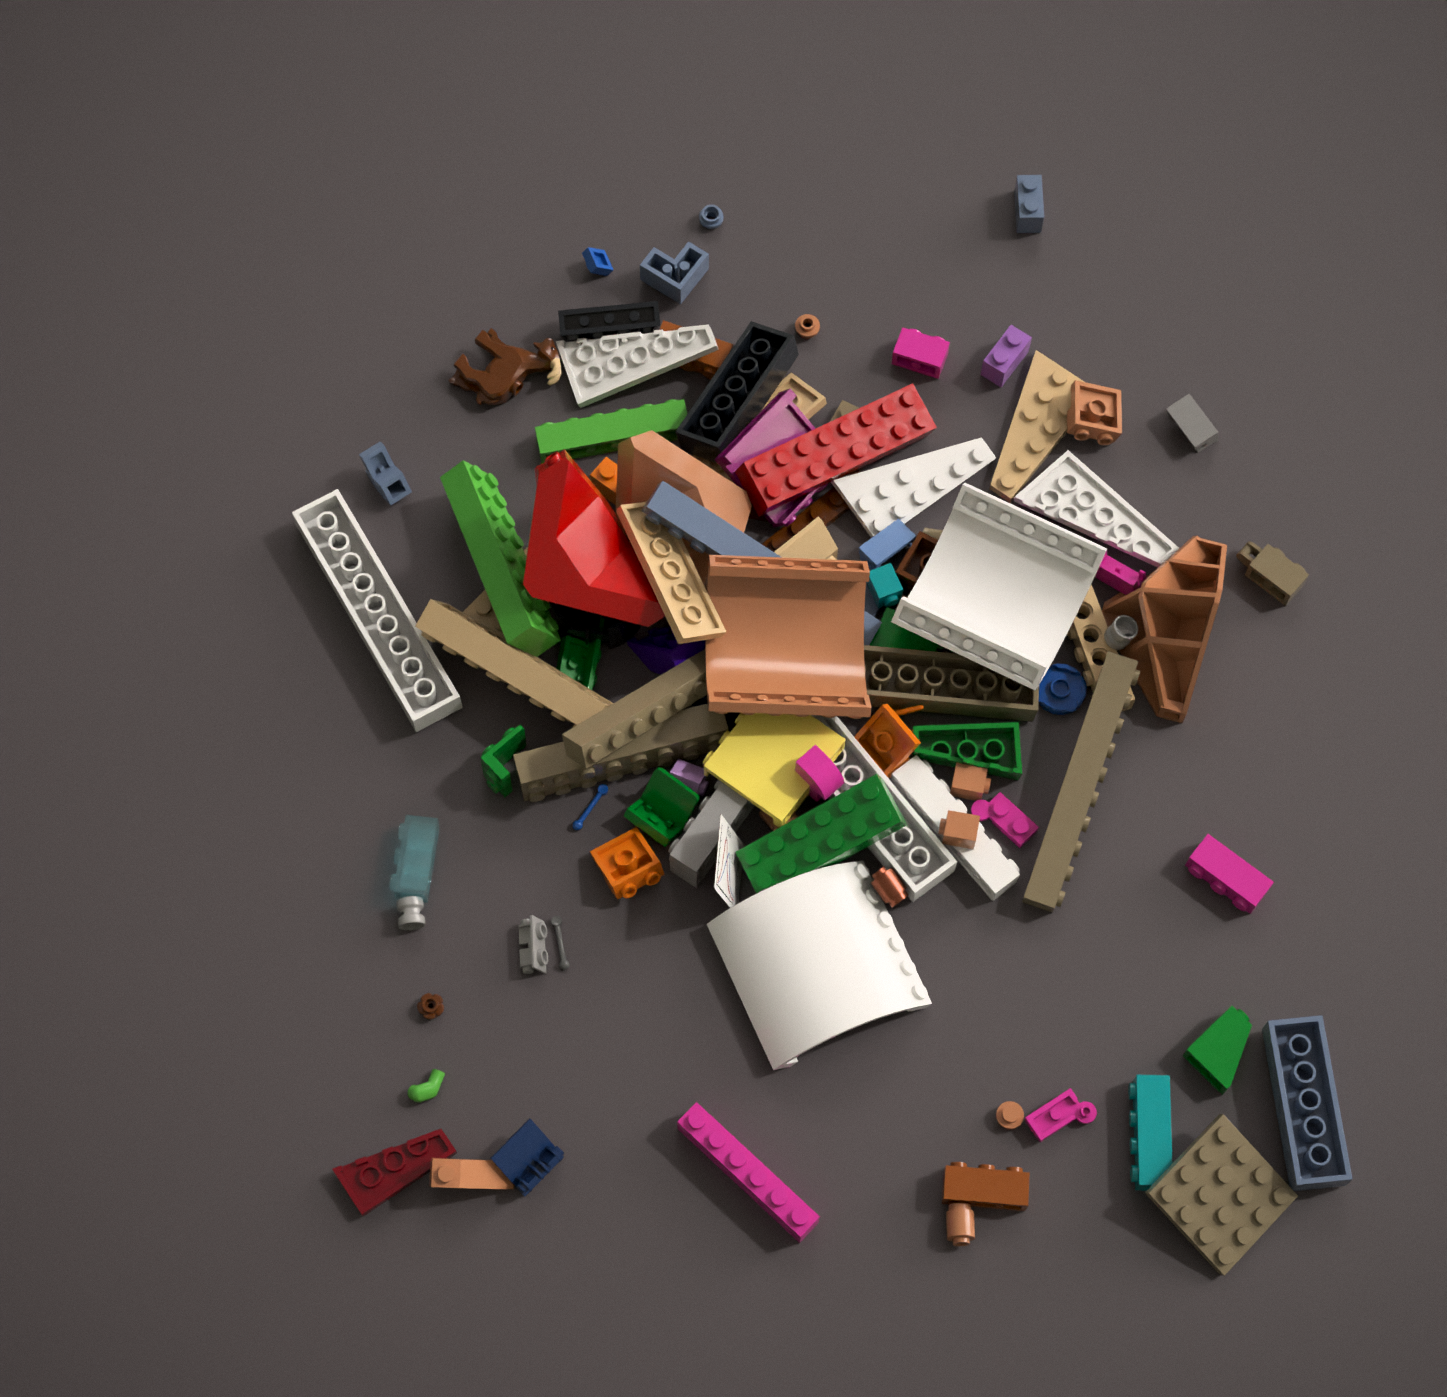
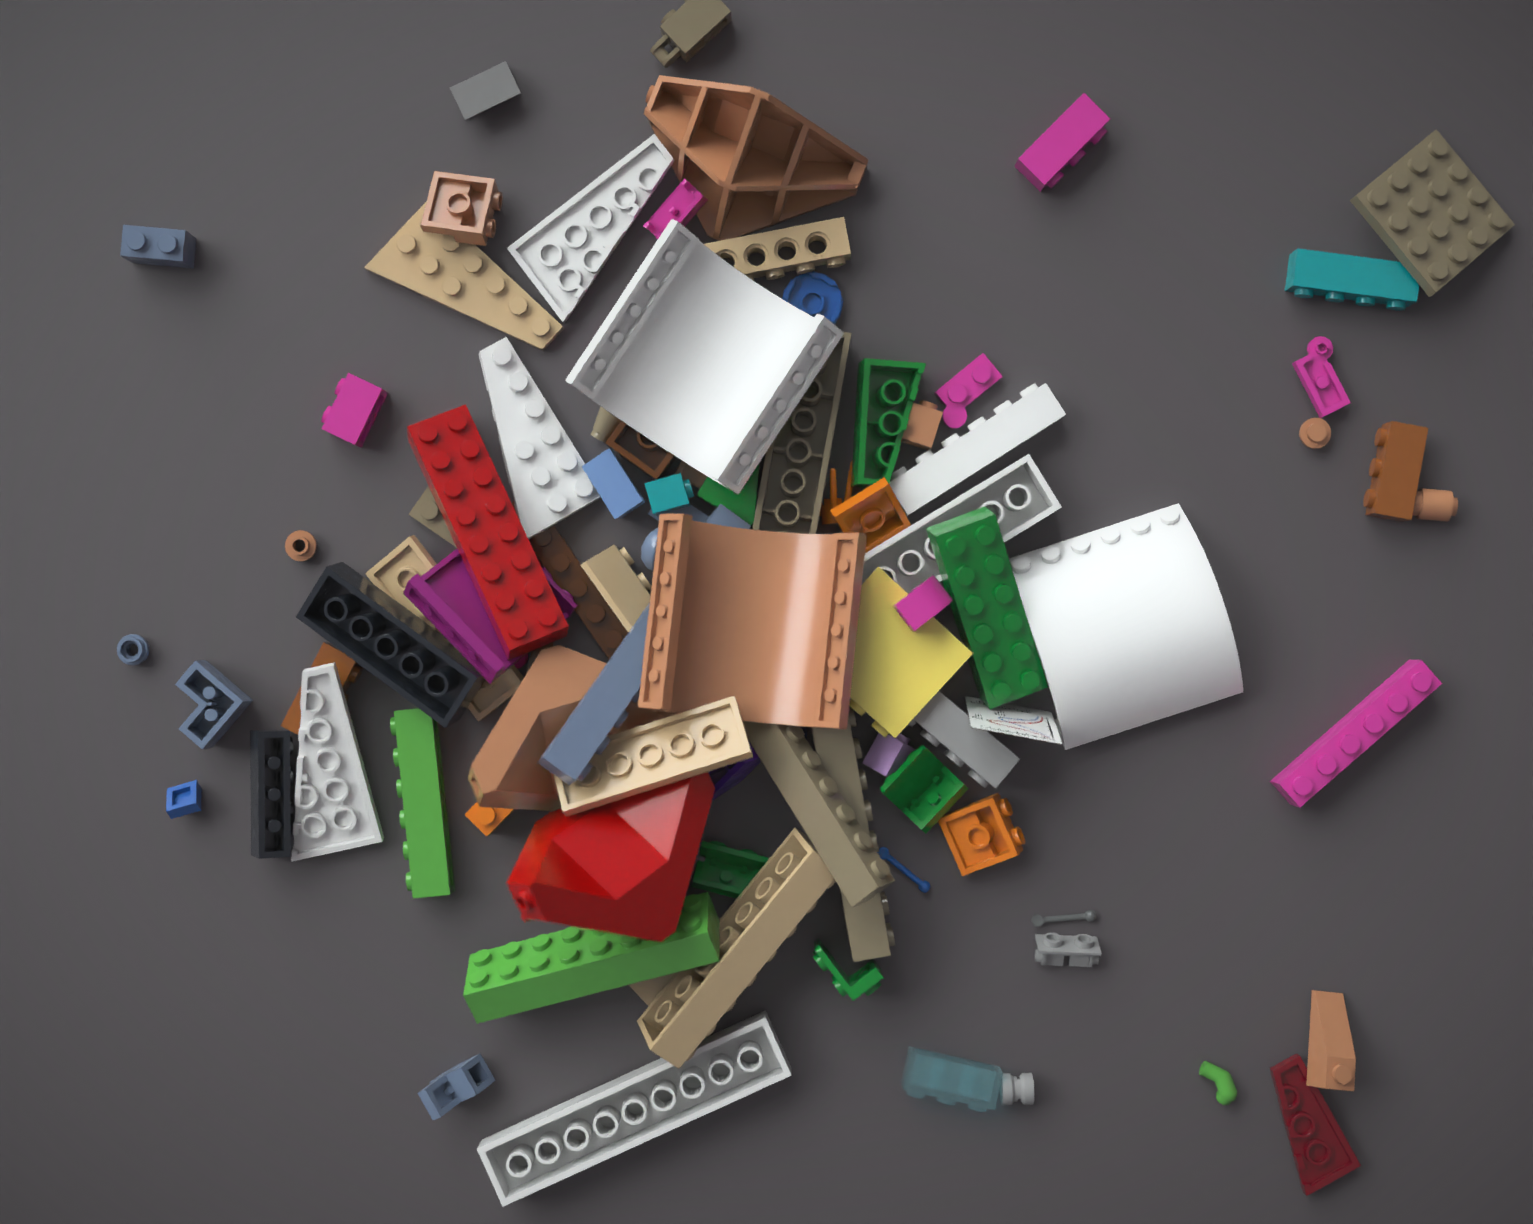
camera: 80 degrees left, 20 degrees up
(435, 1011) = (1123, 1064): reddish brown plate -> none
(507, 370) = (325, 923): reddish brown animal -> none
(527, 1157) = (1317, 976): dark blue hinge -> none
(889, 886) = (1045, 535): copper brick -> none
(959, 829) = (991, 445): nougat brick -> none
(1006, 356) = (370, 305): medium lavender brick -> none
(1080, 782) = (940, 295): dark tan brick -> none
(1121, 632) = (760, 213): light grey wheel -> none
(1220, 1049) = (1264, 185): green slope -> none
(1306, 1103) = (1341, 100): sand blue brick -> none

